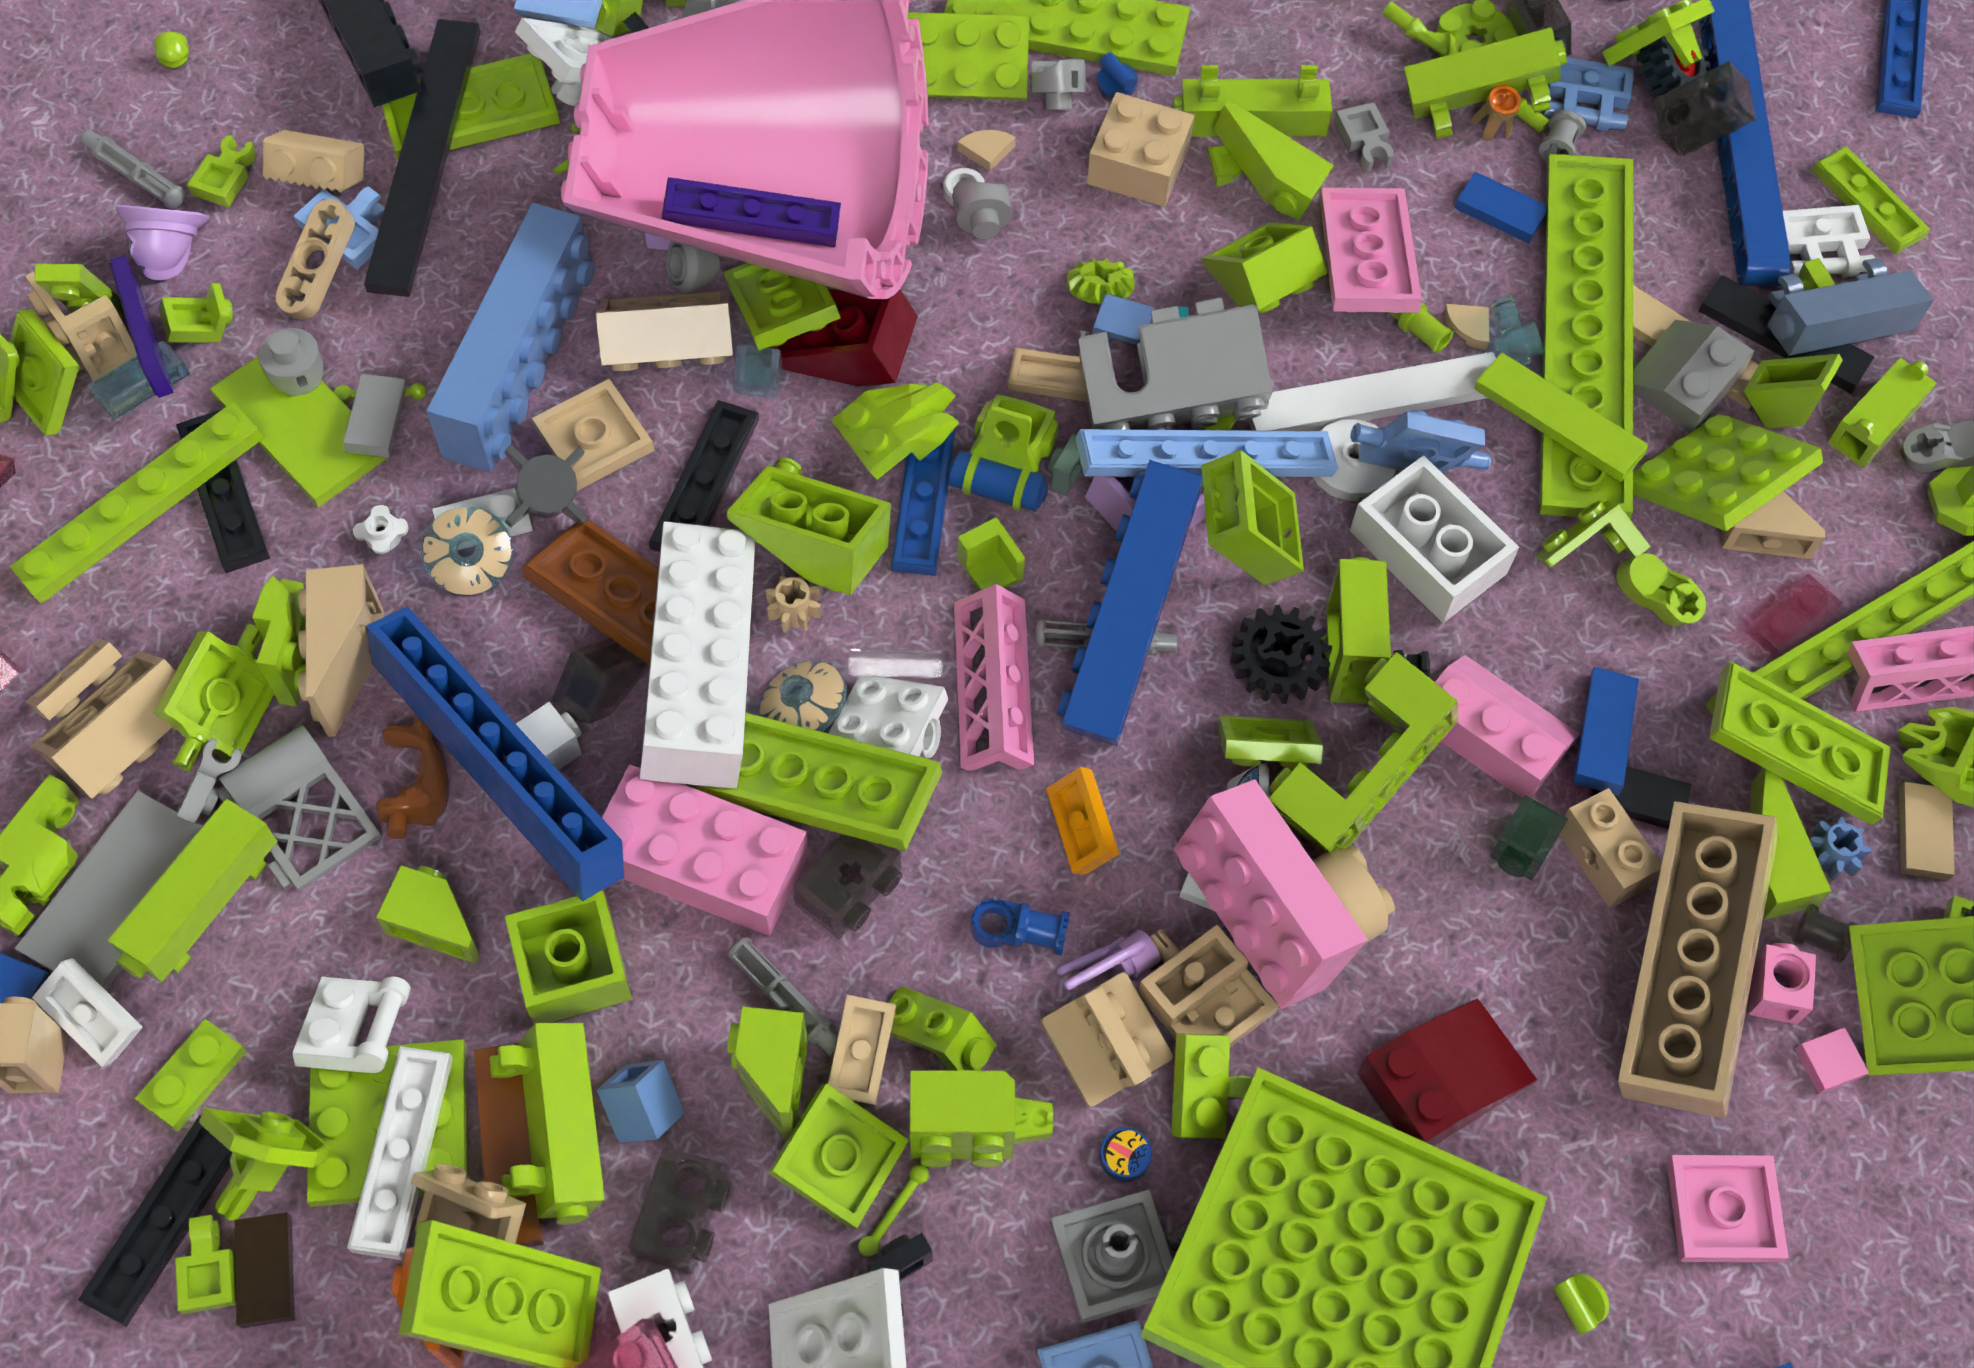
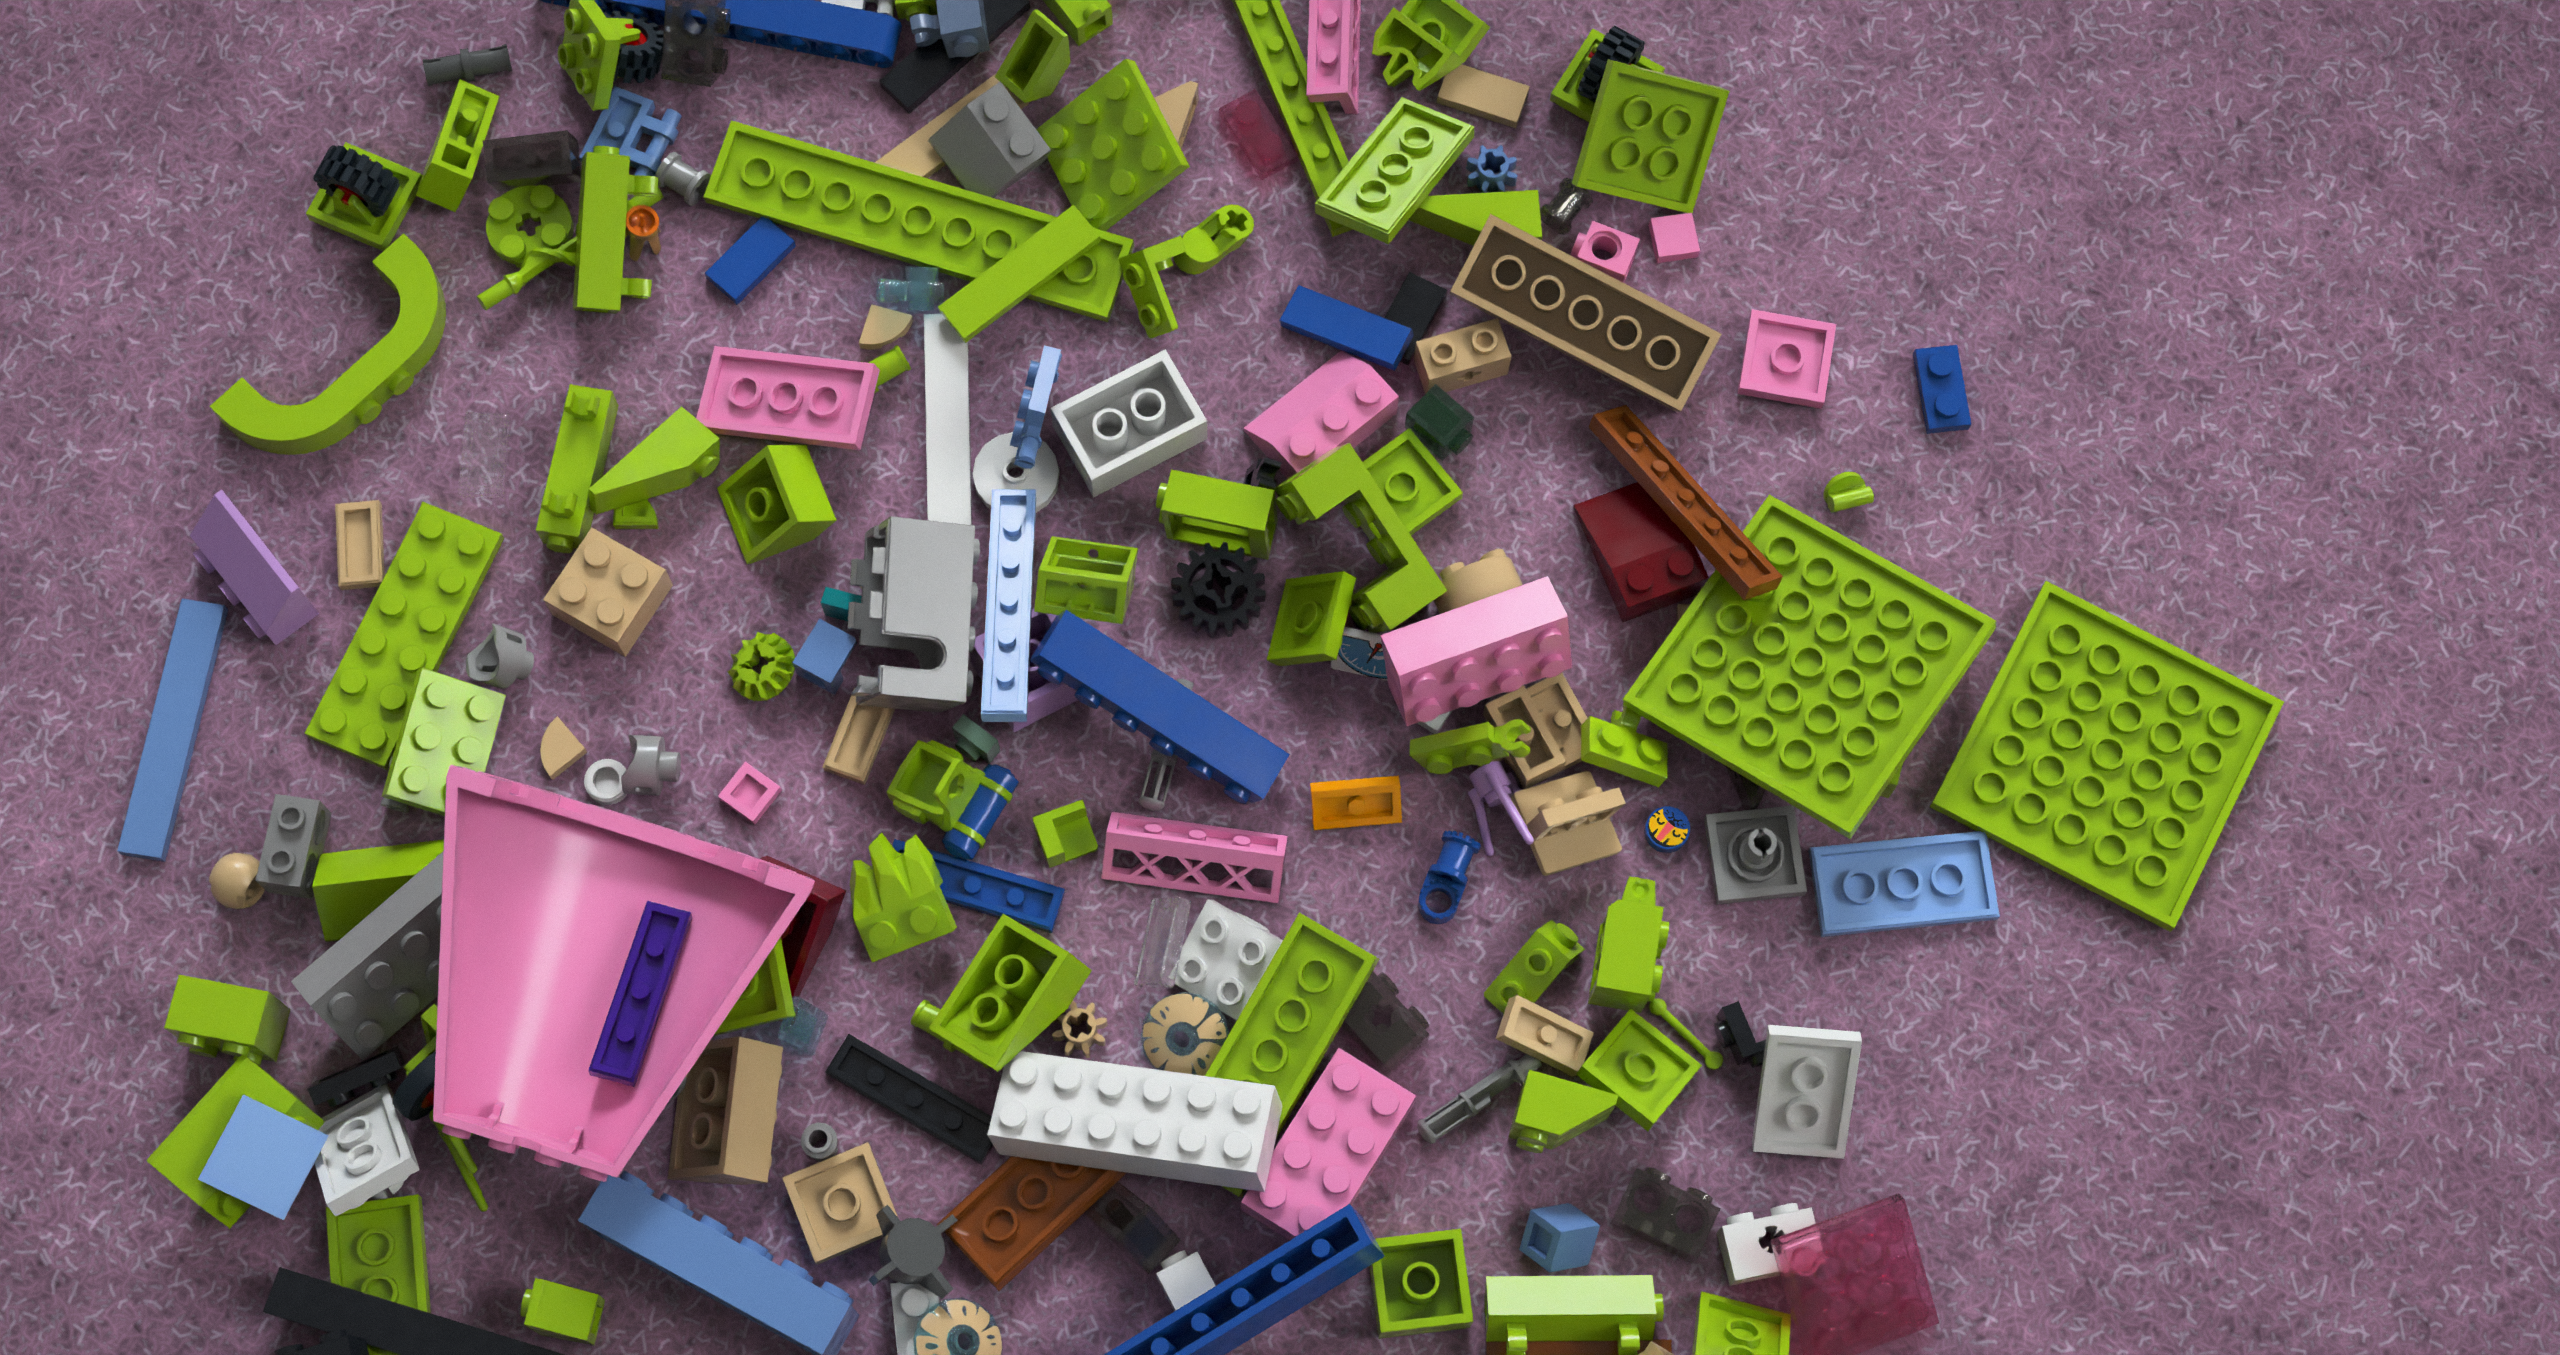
camera: 80 degrees left, 10 degrees up
(459, 227) = (562, 1311): none -> lime slope
(645, 399) = (814, 1133): none -> light grey pin
(977, 297) = (749, 793): none -> bright pink tile
(1116, 77) = (502, 597): blue plate -> none
(1164, 911) = (1469, 746): none -> lime plate
(1366, 131) = (628, 366): light grey plate -> none
(1444, 814) = (1412, 481): none -> lime plate
(1506, 1104) = (1685, 502): none -> dark orange plate

